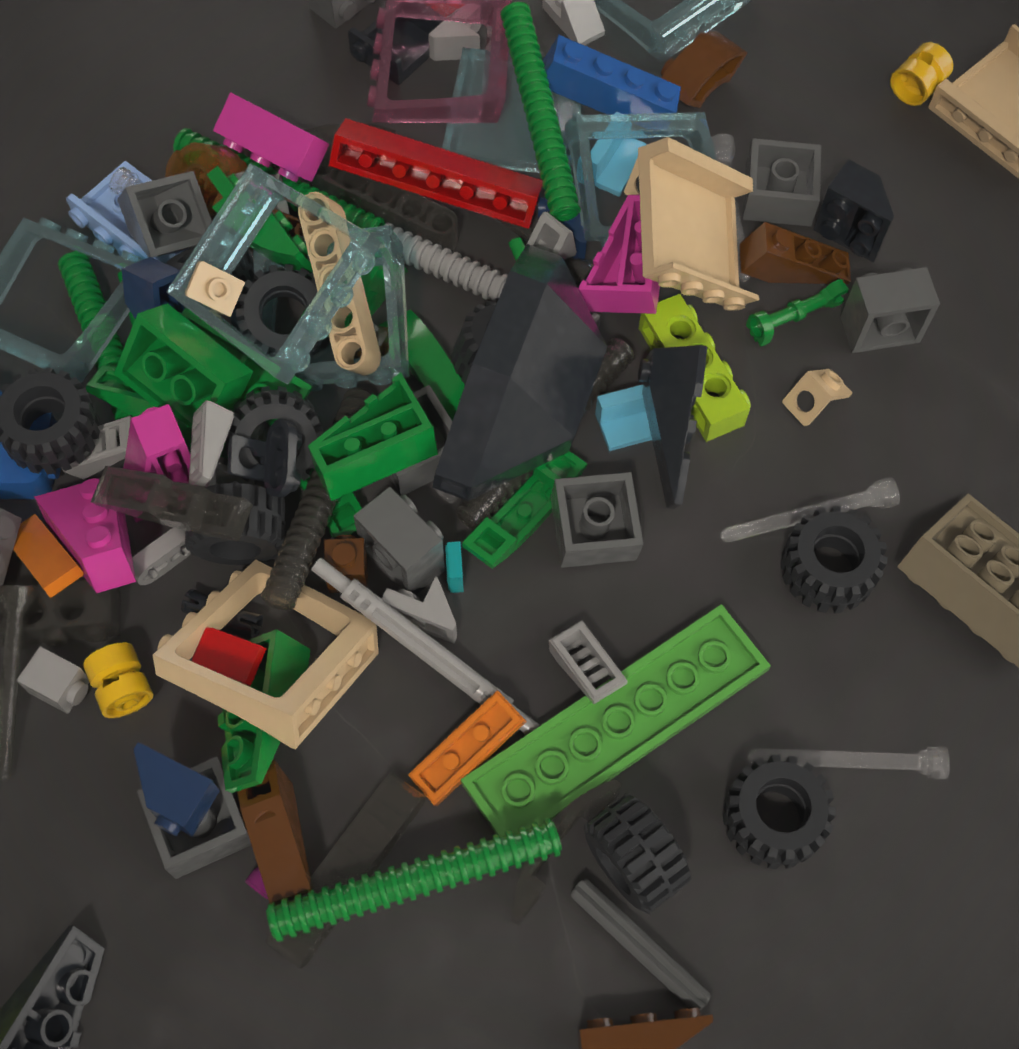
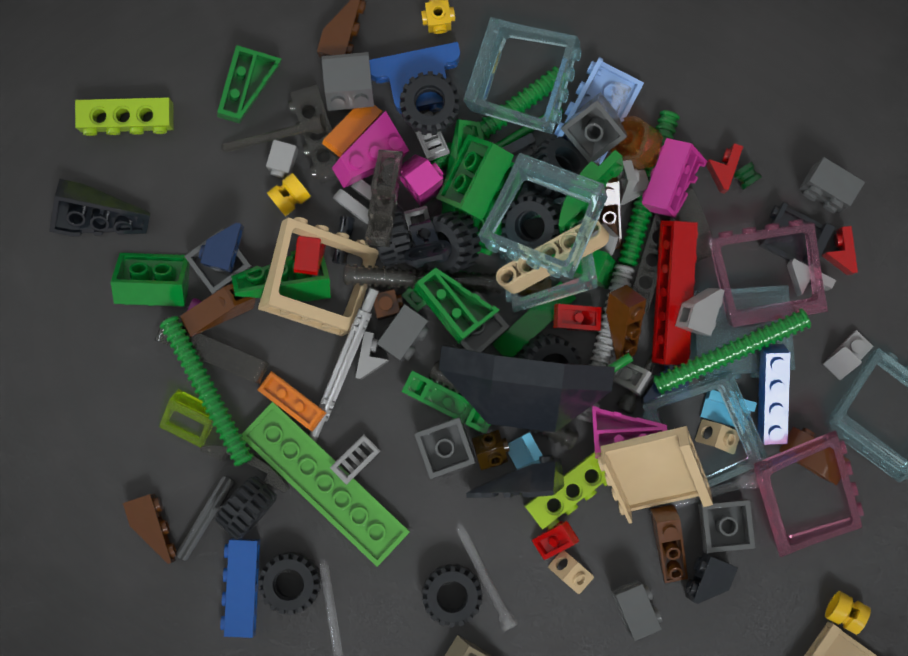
camera: 80 degrees right, 20 degrees up
(147, 284) = (528, 139): dark blue slope -> none
(171, 585) = (352, 205): none -> light grey beam
(190, 952) = (150, 279): none -> green slope
(209, 433) = (425, 208): light grey slope -> none
(214, 288) = (528, 182): tan bracket -> none
(280, 92) = (723, 173): none -> red slope
(298, 71) = (747, 175): none -> dark green wheel
(440, 303) = (577, 317): none -> red slope
(440, 923) = (192, 408): none -> clear neon green tile
(454, 567) = (400, 368): teal tile -> none
(457, 237) = (625, 318): none -> reddish brown slope
(474, 139) = (700, 312): none -> light grey slope
(613, 454) = (490, 449): none -> dark brown brick
(718, 109) = (765, 468): none -> clear pink windscreen
(763, 325) = (629, 549): green piece -> none
(768, 398) = (555, 540): none -> red slope
(776, 901) = (241, 588): none -> blue brick

